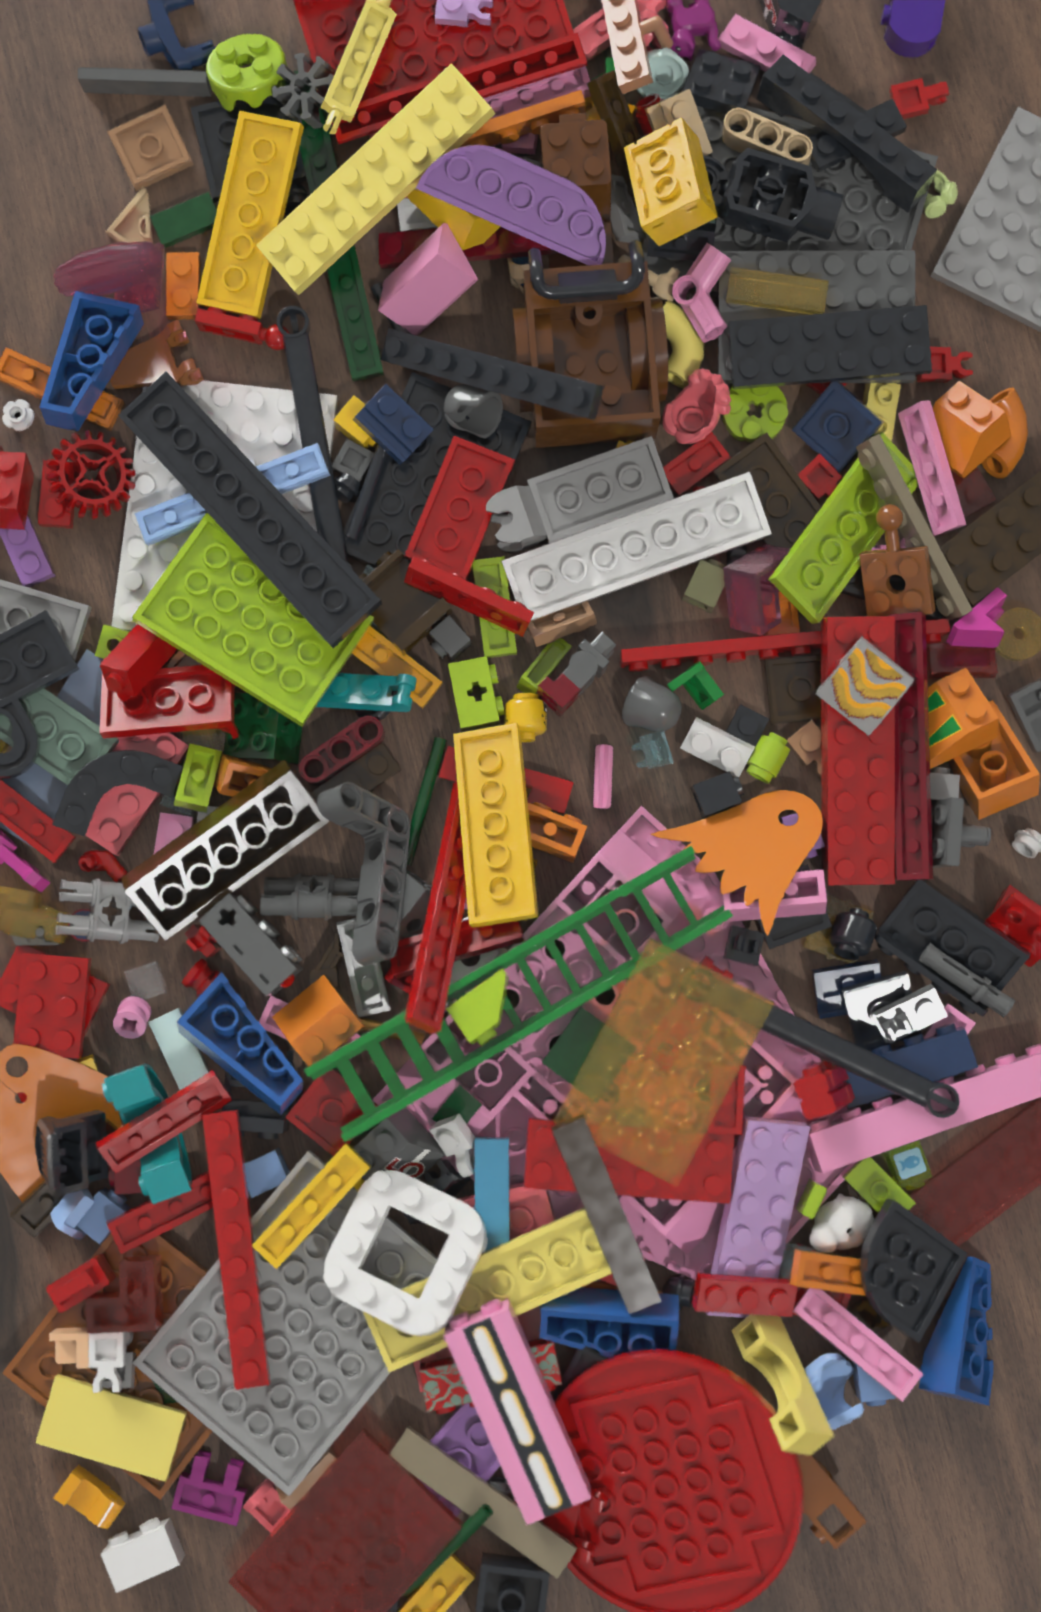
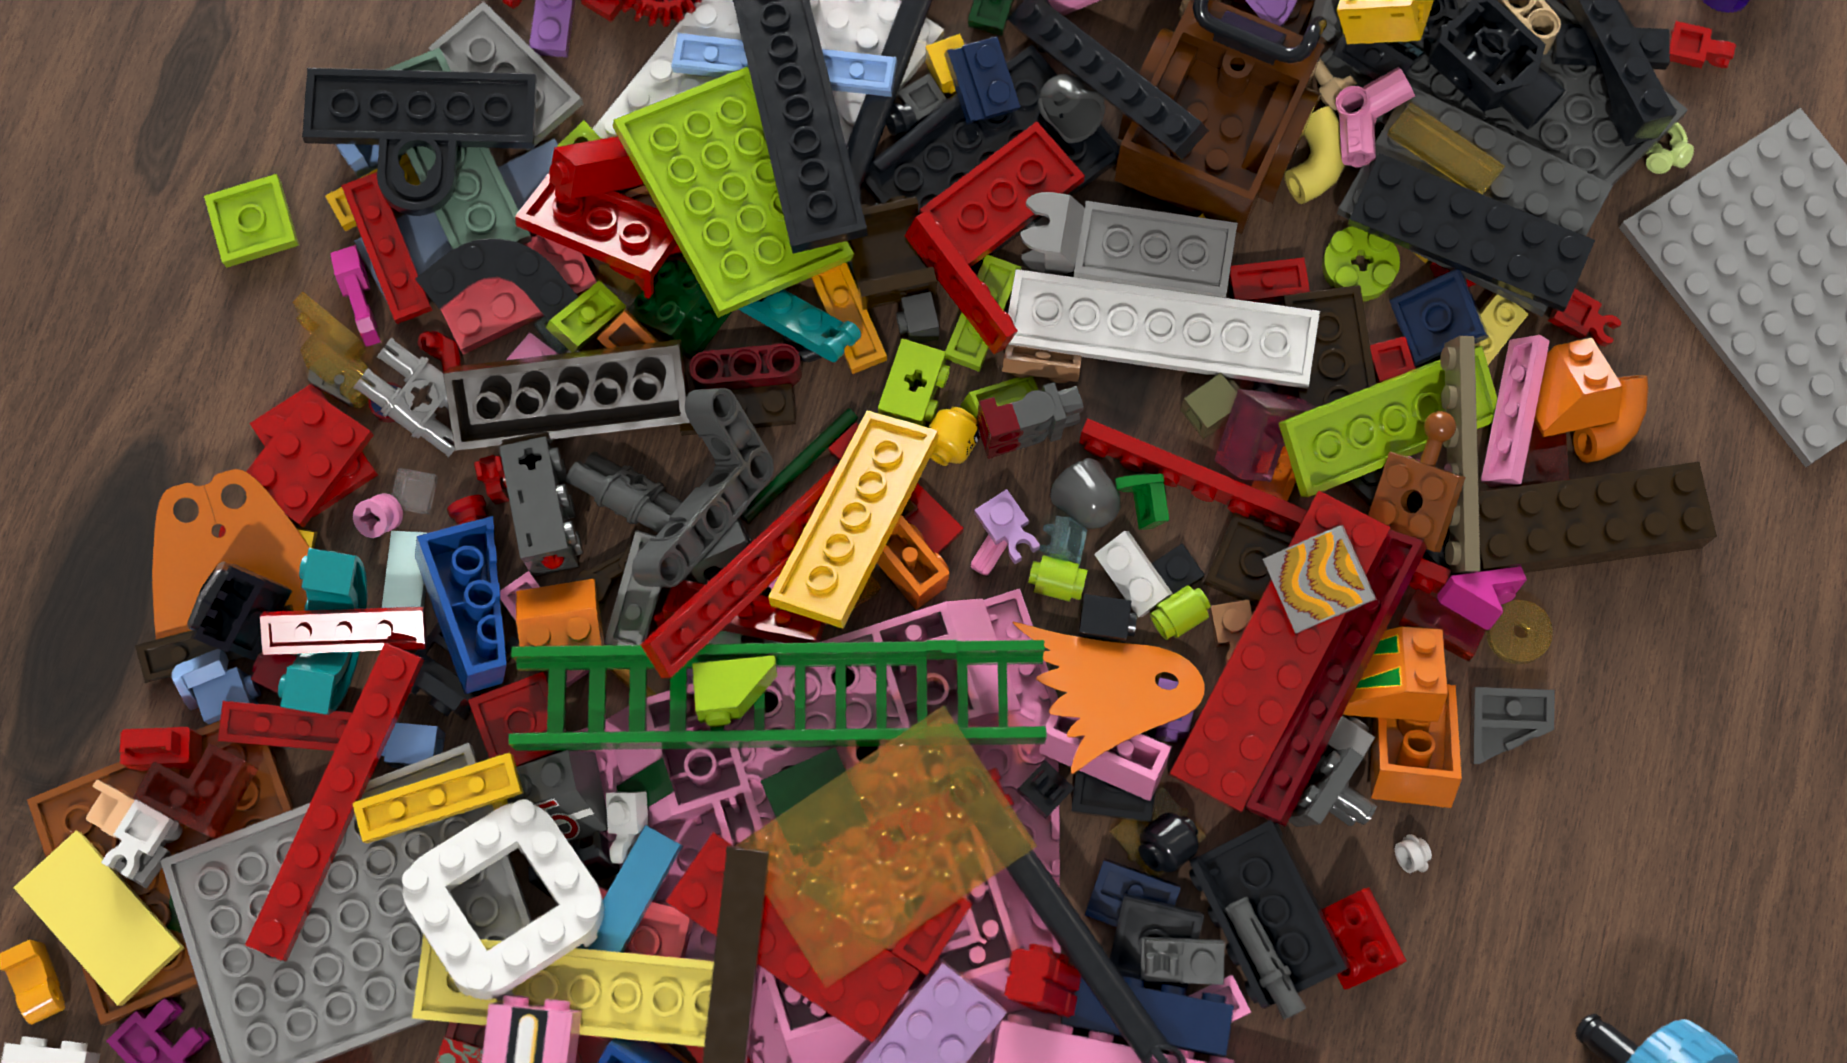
camera: 30 degrees right, 10 degrees down
(602, 761) = (1004, 521): none -> lavender plate
(664, 782) = (1058, 578): none -> lime brick
(697, 407) = (1301, 225): coral hair -> none

